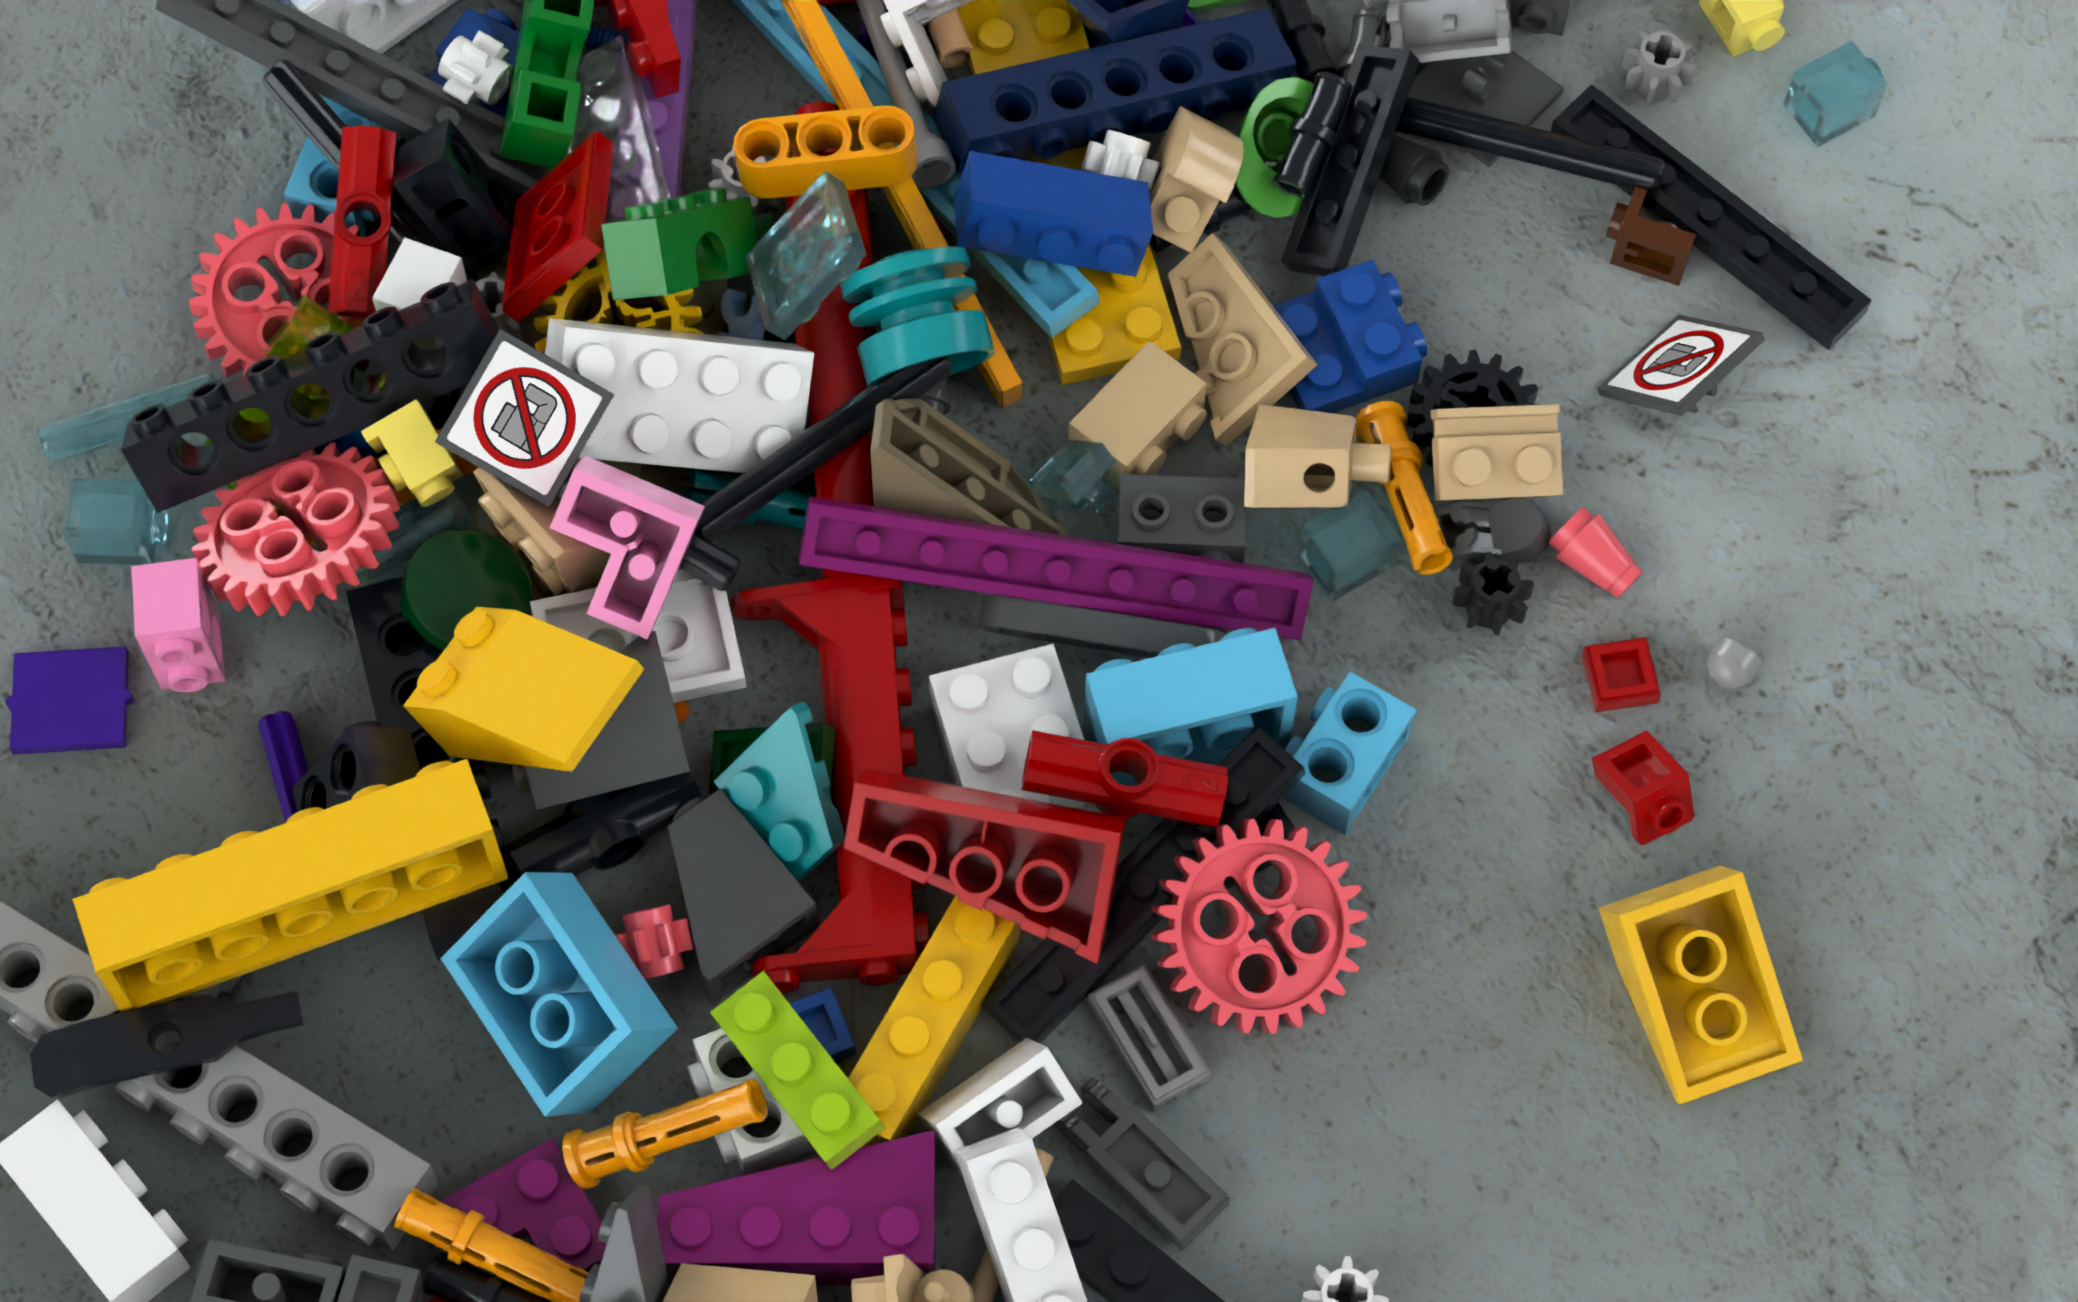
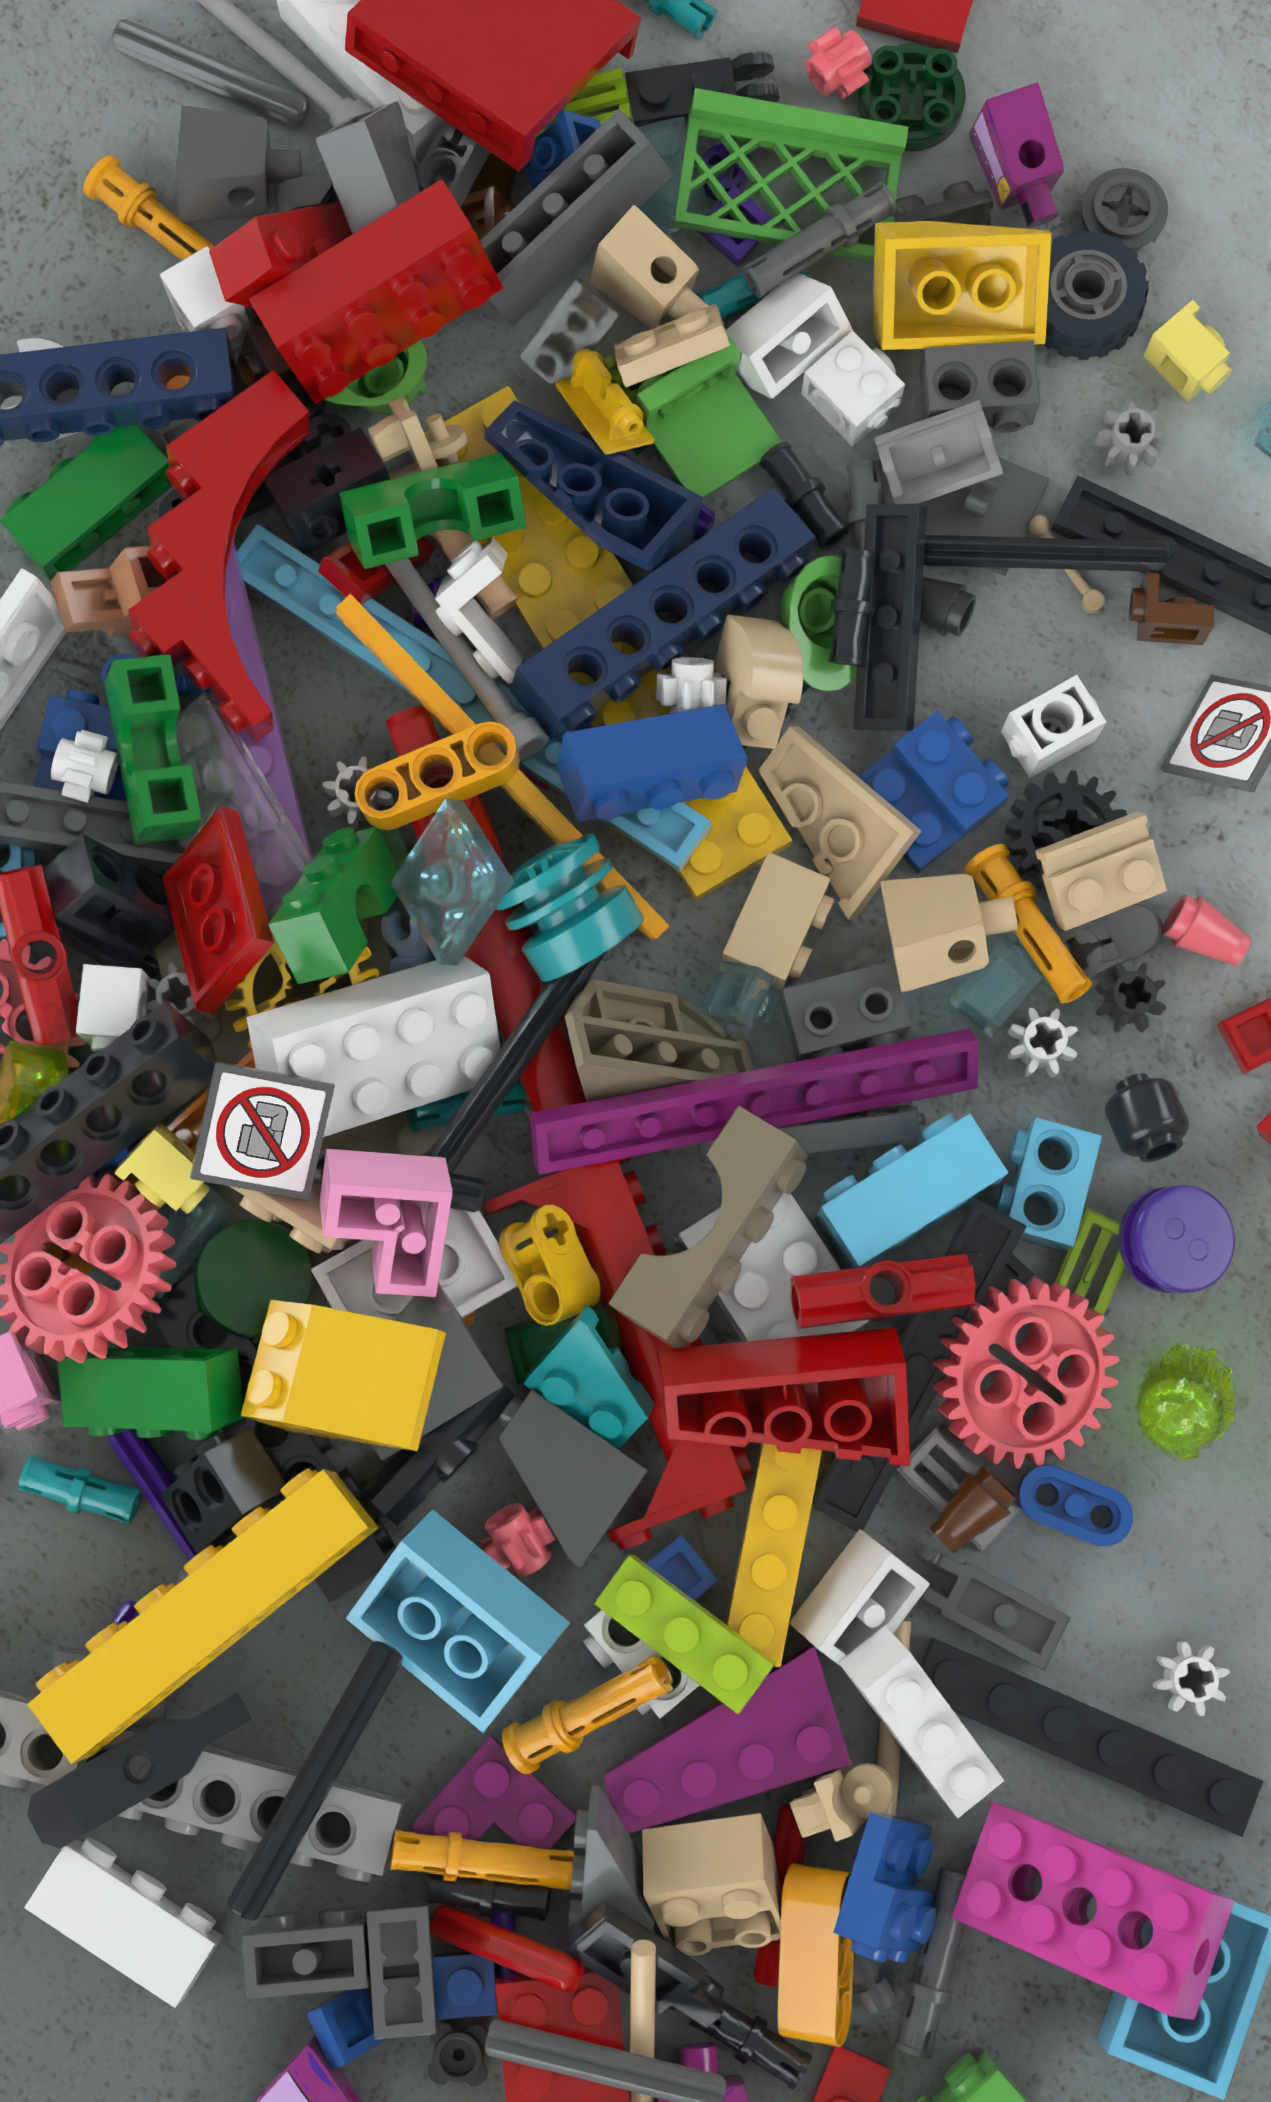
camera: 15 degrees left, 15 degrees up
(211, 766) = (80, 1489): none -> teal pin
(319, 670) = (153, 1391): none -> green brick
(345, 1106) = (314, 1781): none -> black axle
(777, 666) = (550, 1271): none -> yellow piece
(903, 715) = (674, 1291): none -> dark tan arch
(1156, 1048) = (973, 1508): none -> reddish brown cone
(1277, 1084) = (1073, 1505): none -> blue plate
(1367, 613) = (1047, 1028): none -> white gear
(1396, 861) = (1070, 1258): none -> lime tile
(1427, 1013) = (1186, 1401): none -> clear neon green hair
(1468, 842) = (1176, 1239): none -> head
(1474, 715) = (1147, 1117): none -> black head
(1490, 306) = (1062, 710): none -> white head
(1573, 210) = (1092, 599): none -> tan hinge

